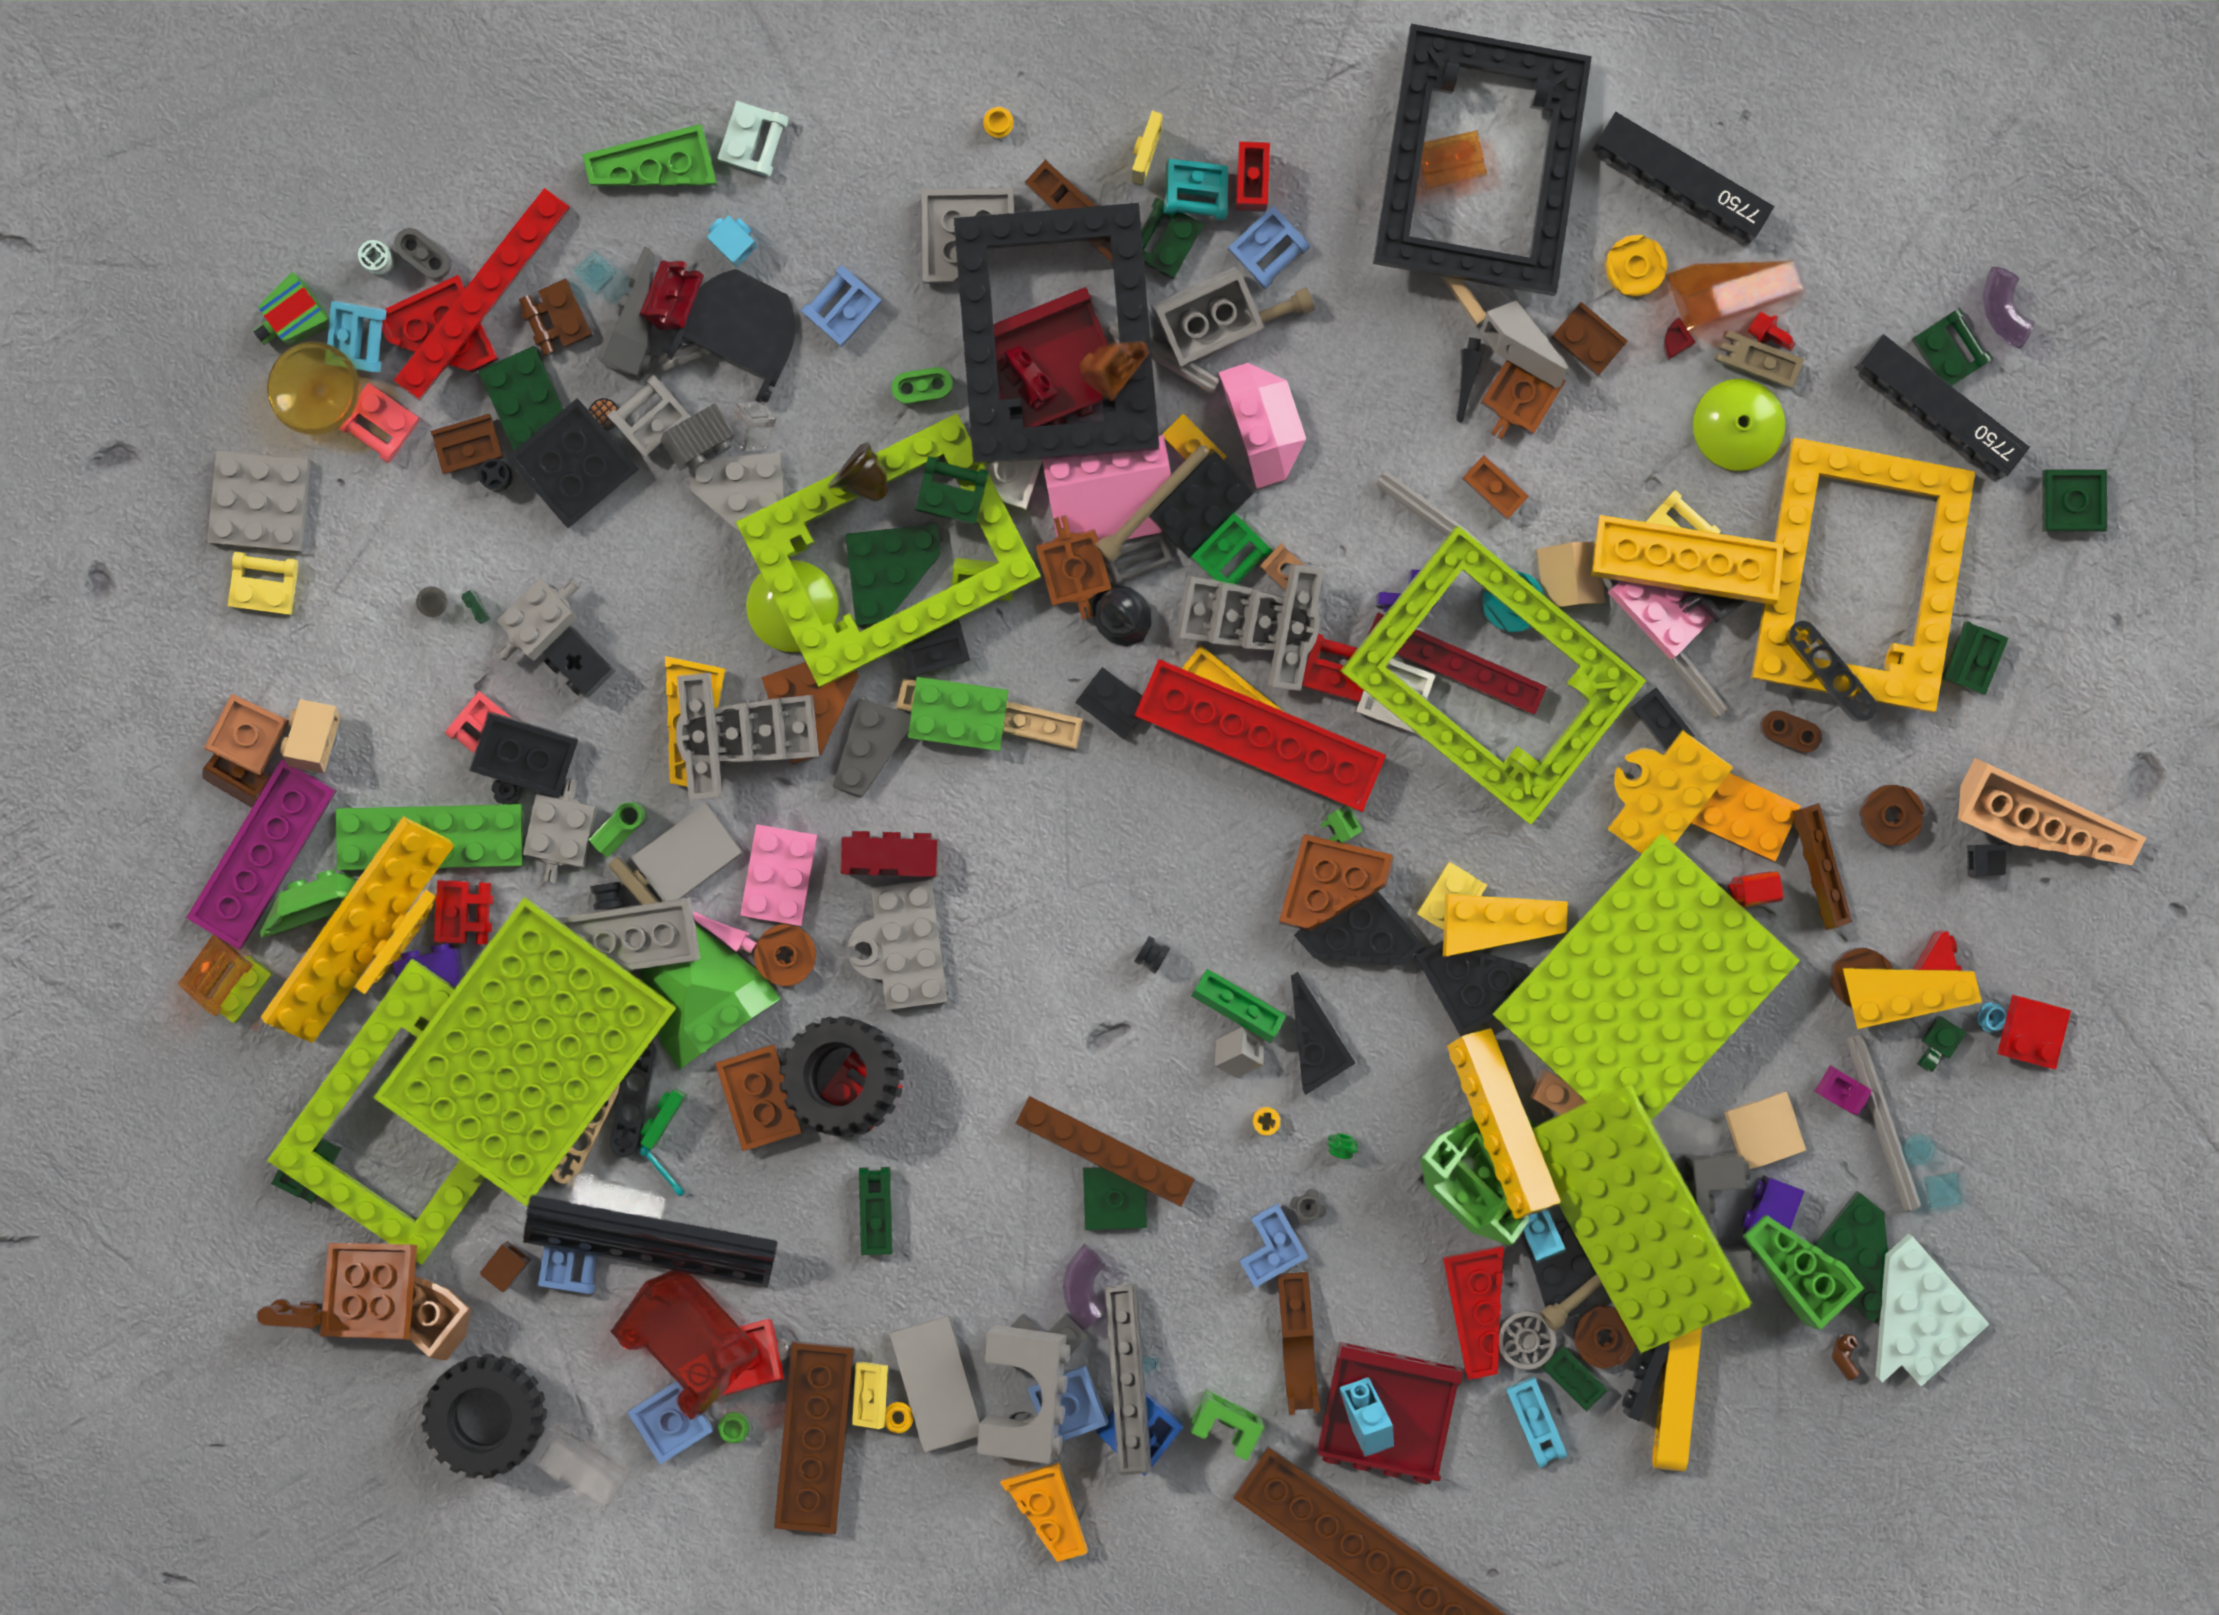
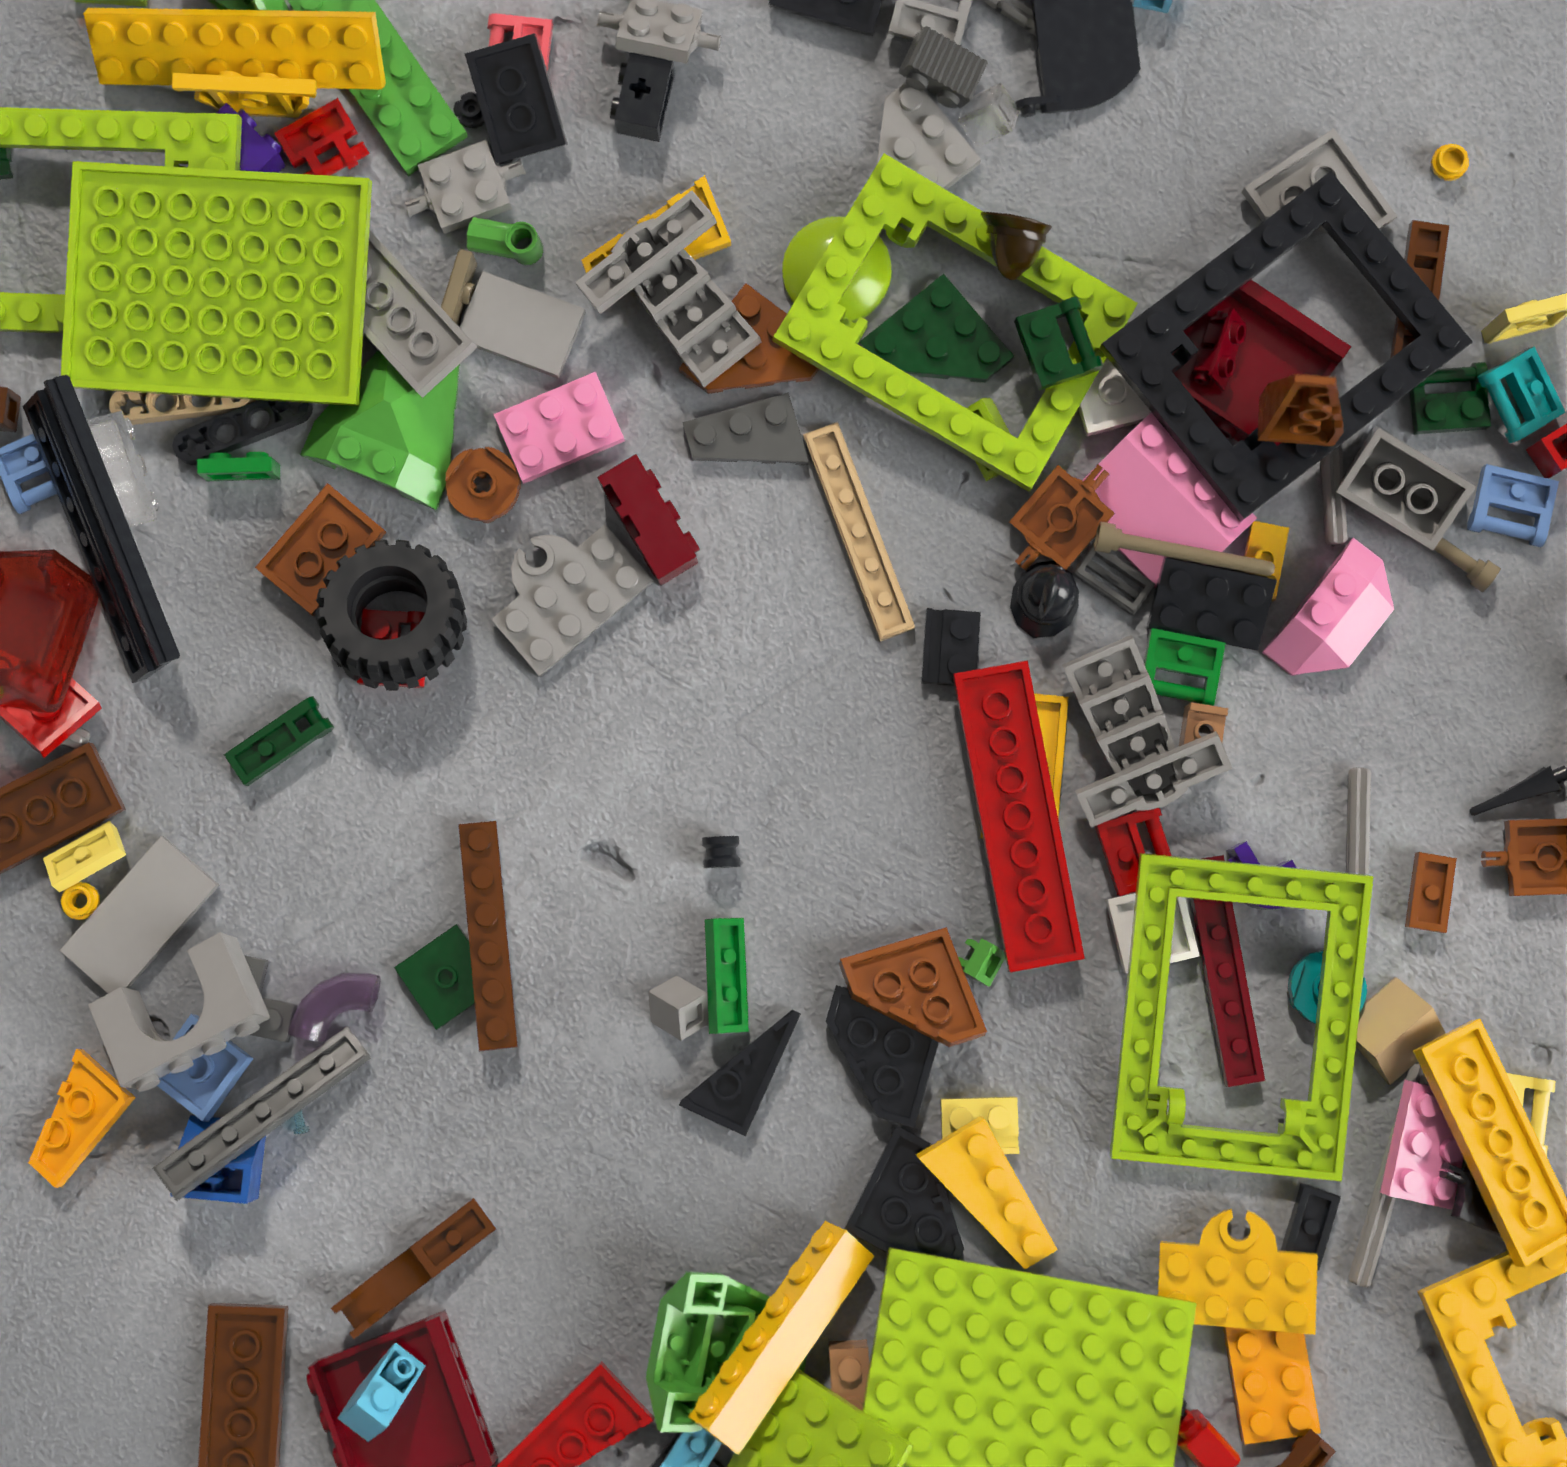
camera: 60 degrees right, 5 degrees down
(607, 896) = (428, 271): black wheel -> none
(644, 1151) = (178, 528): teal hinge -> none
(733, 937) = (466, 420): bright pink piece -> none
(848, 313) = (1165, 137): medium blue plate -> none
(922, 385) = (1143, 253): bright green plate -> none
(937, 650) = (888, 437): black plate -> none
(958, 713) = (837, 498): bright green plate -> none
(1231, 1415) = (293, 1247): bright green panel -> none
(1258, 1126) = (636, 1087): yellow bush -> none
(1281, 1247) = (499, 1185): medium blue plate -> none
(1305, 1215) = (565, 1195): dark grey plate -> none
(1342, 1145) = (650, 1178): green plate -> none
(1792, 731) = (1389, 1372): reddish brown plate -> none
(1827, 675) = (1495, 1375): black beam -> none

